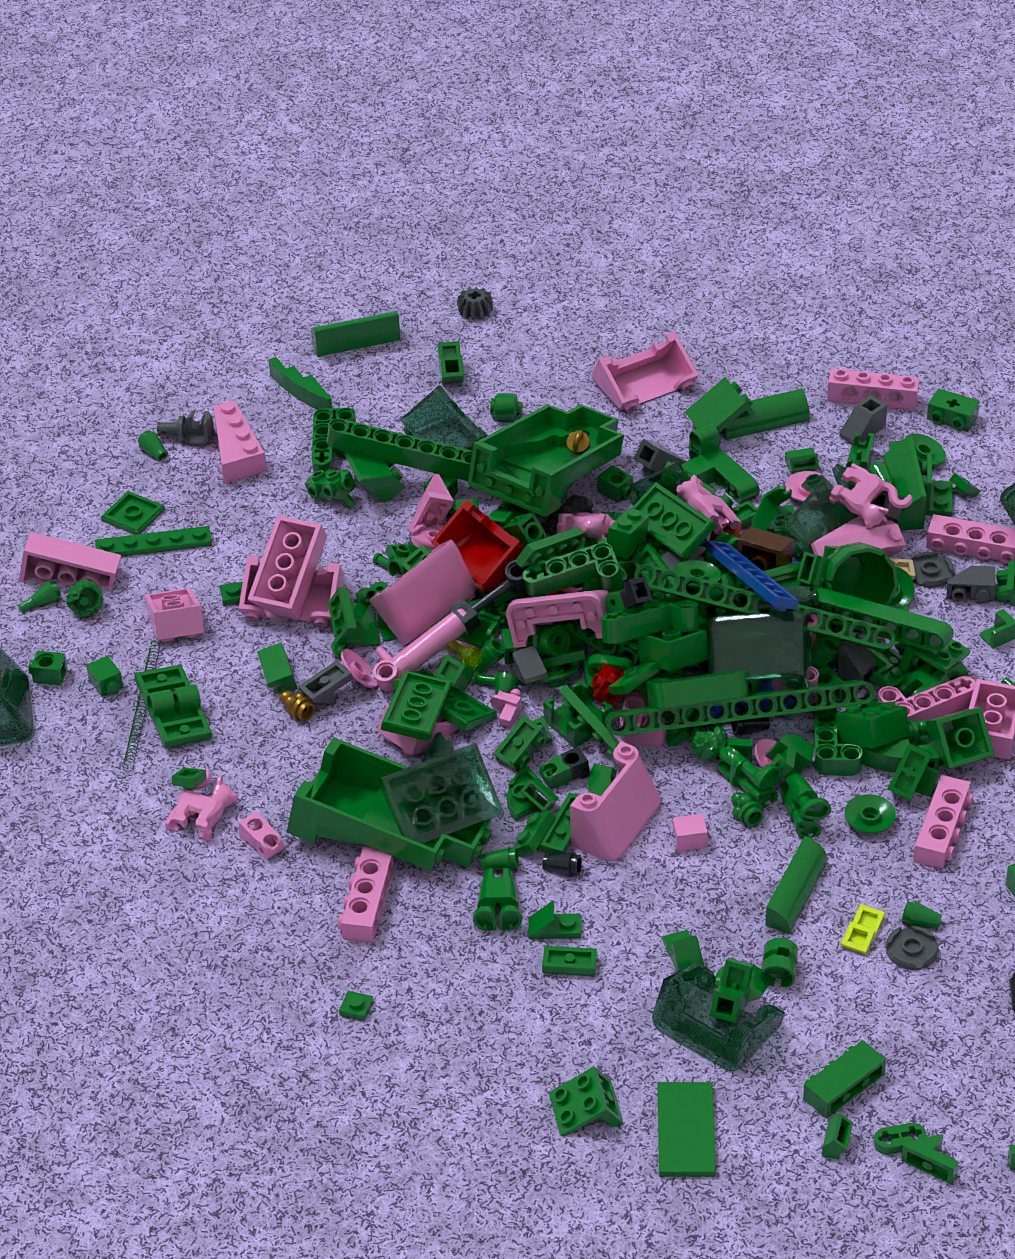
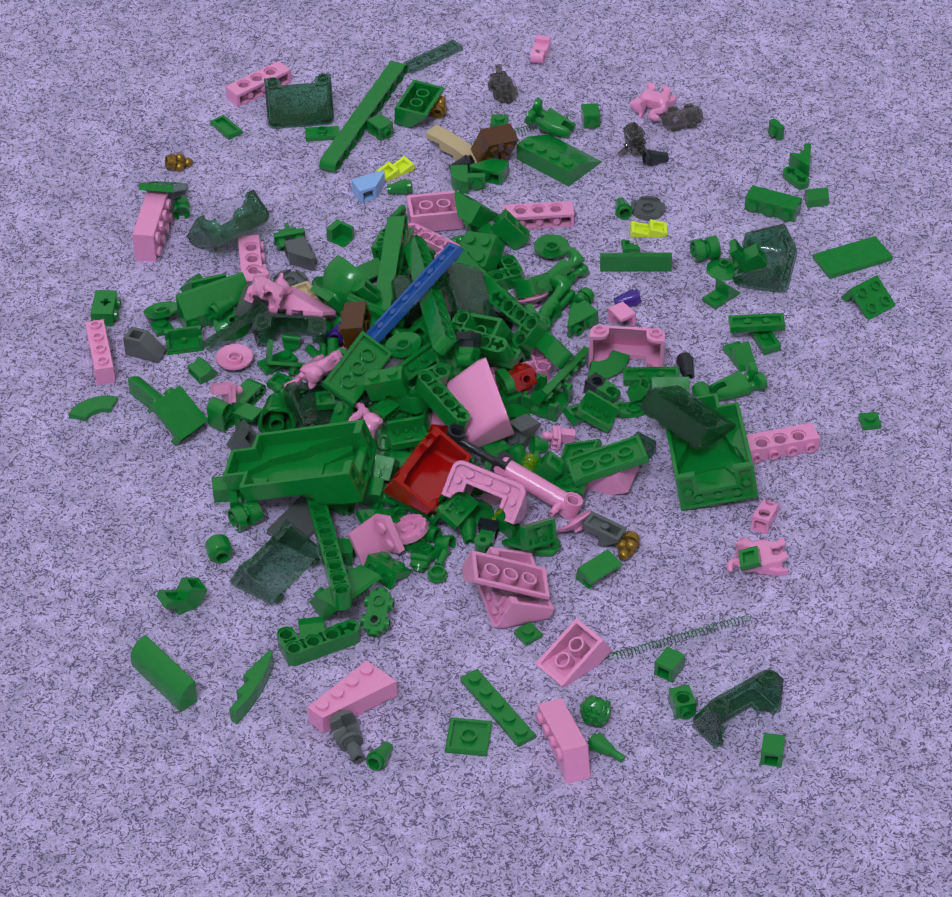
camera: 115 degrees left, 0 degrees up
(173, 706) = (675, 610): green plate -> none
(363, 551) = (437, 574): none -> green plate
(364, 595) = (500, 536): green axle -> none
(383, 538) = (420, 561): none -> green plate
(394, 517) = (387, 568): none -> green bracket
(474, 303) = (82, 616): dark grey gear -> none
(550, 547) = (421, 421): green plate -> none
(578, 442) = (273, 461): pearl gold tile -> none
(588, 947) = (756, 322): none -> green plate
(633, 678) = (525, 352): green plate -> none
(646, 374) = (127, 481): bright pink windscreen -> none
(710, 792) = (581, 317): none -> green slope
(724, 850) = (631, 298): none -> dark purple cone
(726, 442) = (226, 389): none -> bright pink piece
(791, 373) = (93, 406): none -> green tile
(836, 897) = (629, 247): none -> green tile

